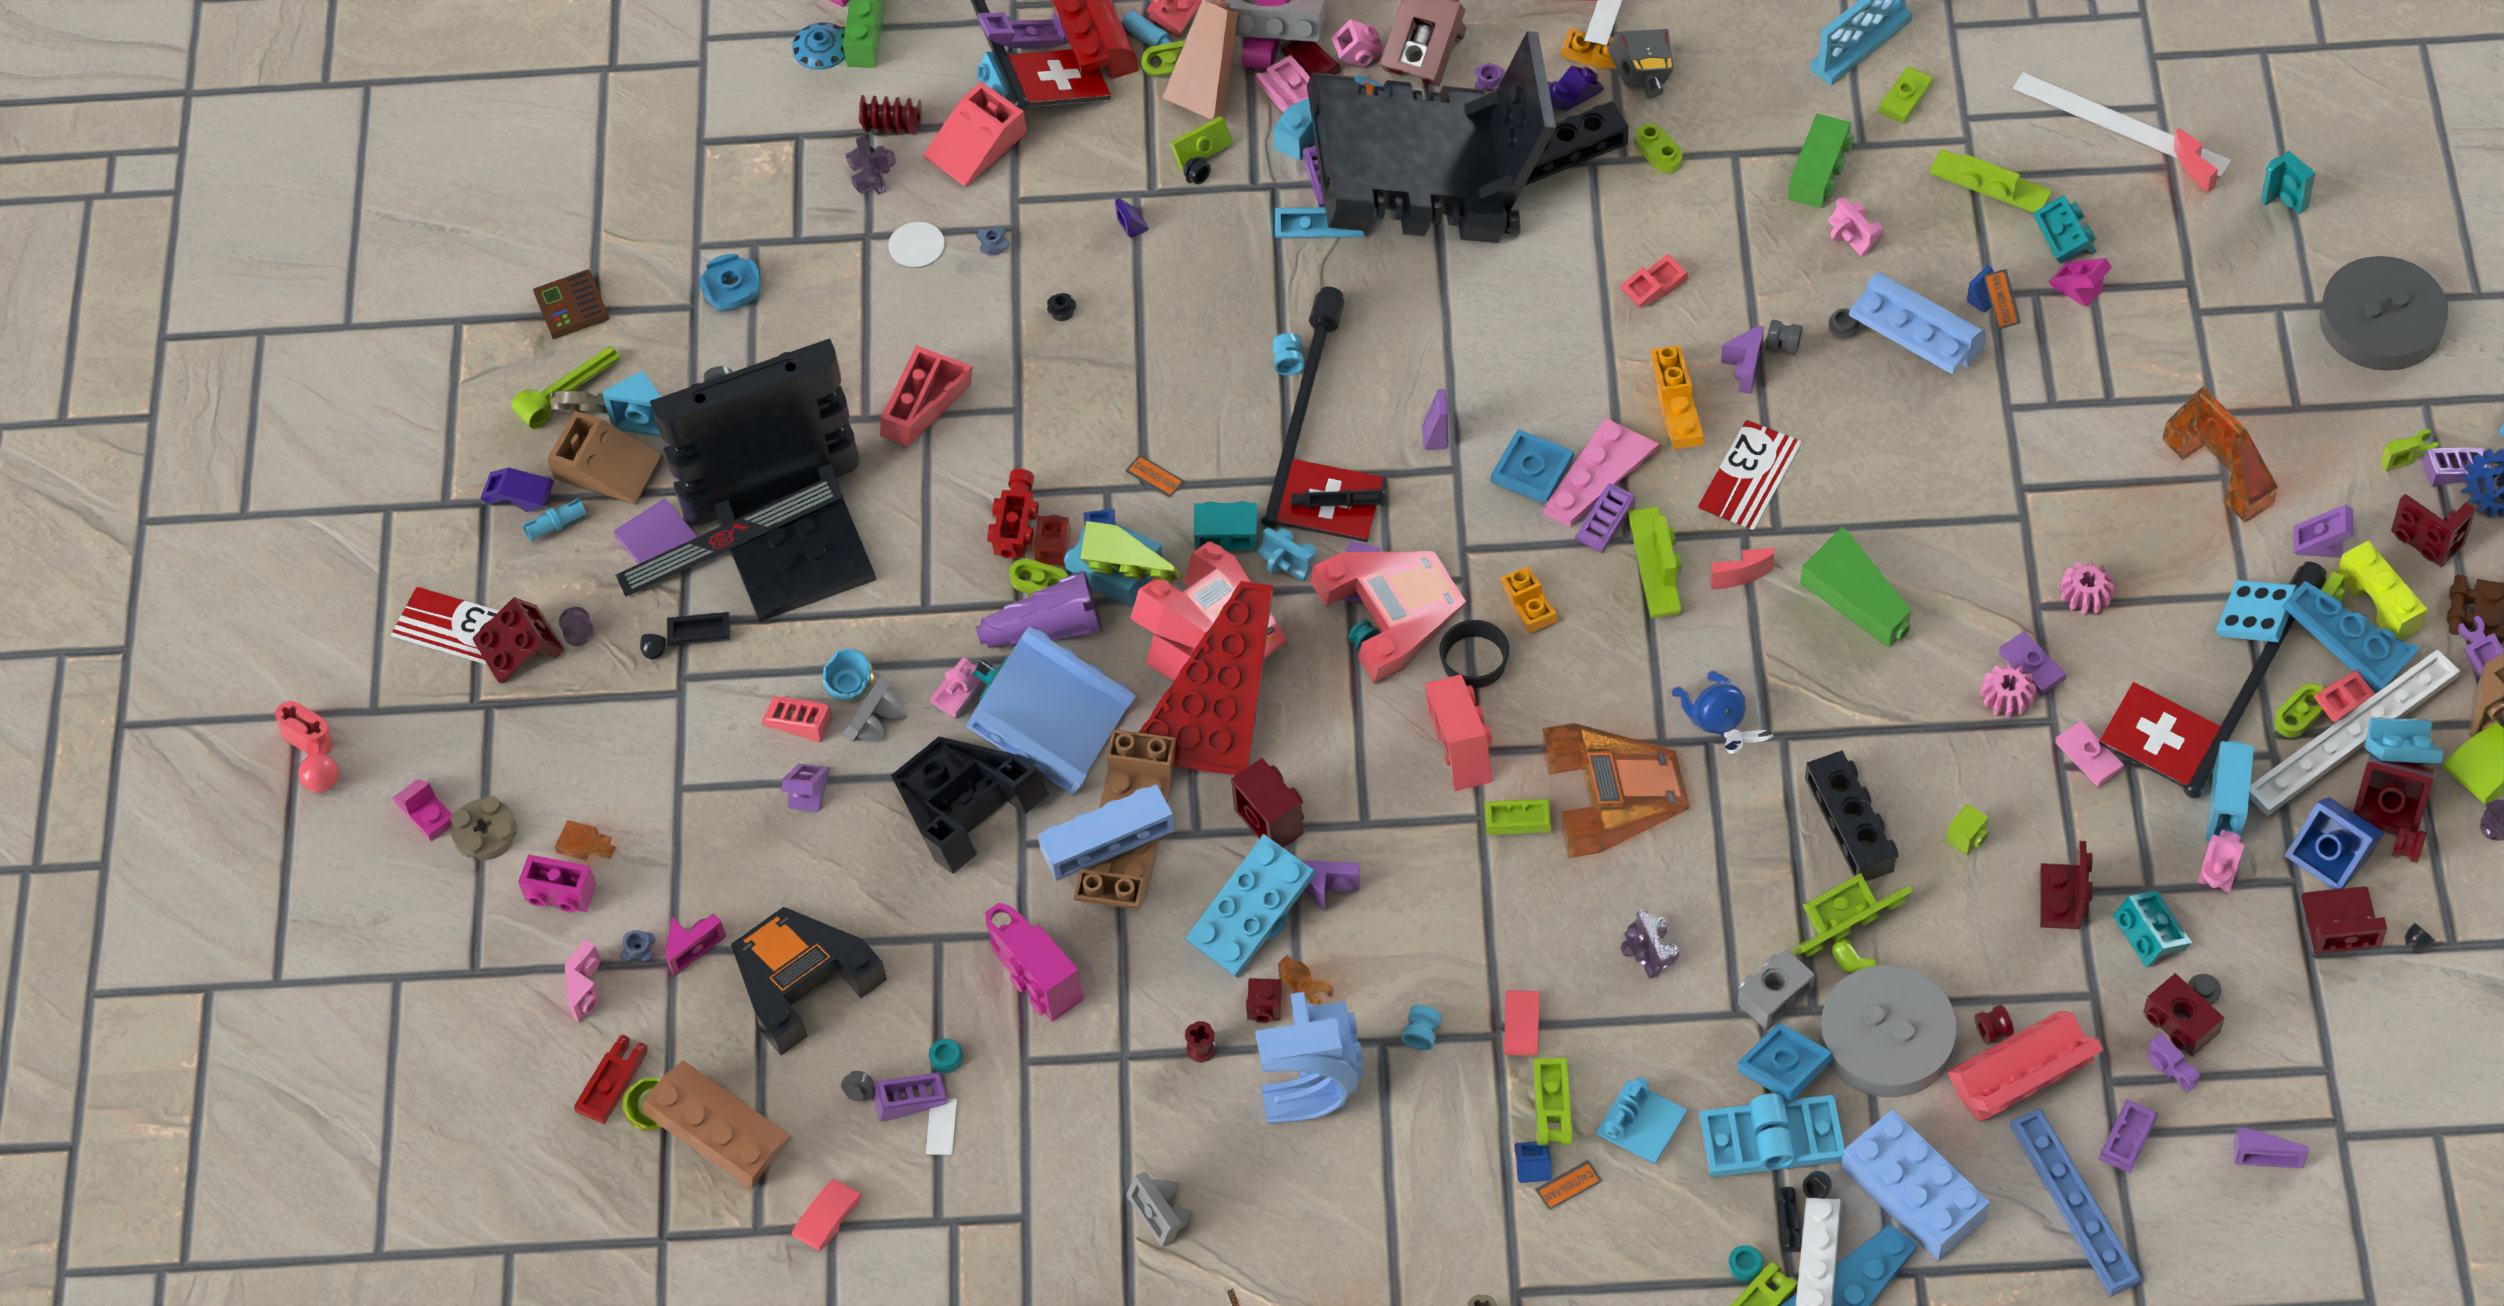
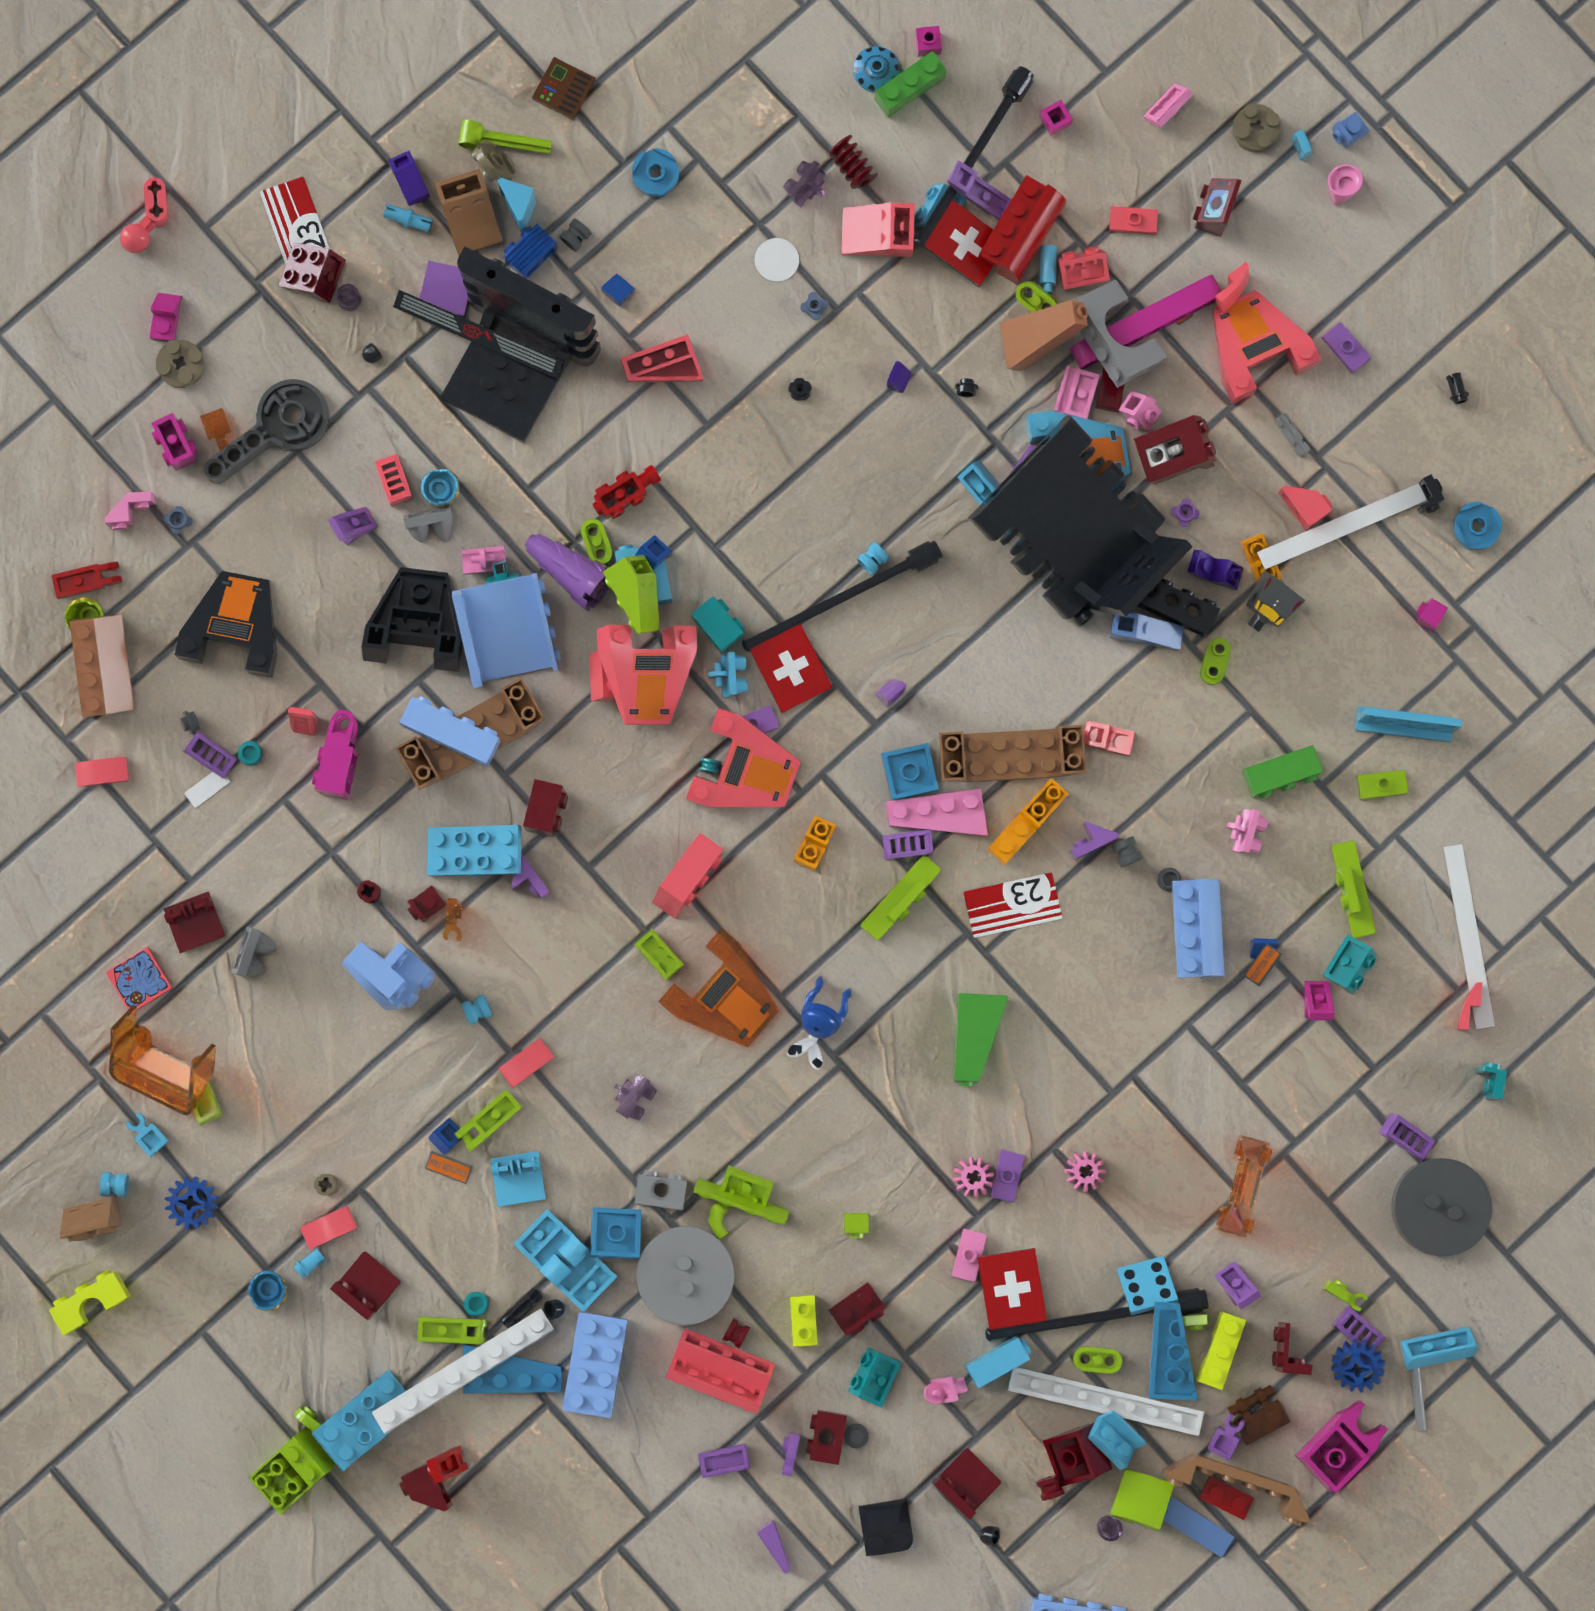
camera: 40 degrees right, 25 degrees up
(639, 786) = (275, 430): none -> dark grey beam
(687, 947) = (196, 547): dark pink slope -> none
(698, 629) = (405, 369): black tile -> none
(961, 969) = (303, 720): none -> coral slope
(1052, 539) = (619, 526): clear red brick -> none
(1073, 1242) = (194, 922): none -> dark red hinge
(1154, 476) = (726, 547): sticker -> none
(1202, 141) = (988, 374): lime plate -> none
(1218, 689) = (592, 718): red wing -> none
(1340, 498) = (793, 676): black piece -> none
(1475, 628) = (754, 819): black tyre -> none
(1571, 180) = (1146, 631): none -> medium blue slope
(1600, 363) = (1012, 754): none -> medium nougat slope
(1752, 566) = (942, 958): coral slope -> none
(1836, 771) = (825, 1113): black brick -> none
(2033, 948) = (803, 1320): none -> neon yellow brick
(2075, 1202) = (660, 1459): medium blue tile -> none
(2267, 306) = (1393, 1136): none -> medium lavender slope
(2331, 1032) = (886, 1527): none -> black slope
(2333, 843) = (1015, 1444): blue slope -> none
(2344, 696) = (1124, 1379): coral slope -> none

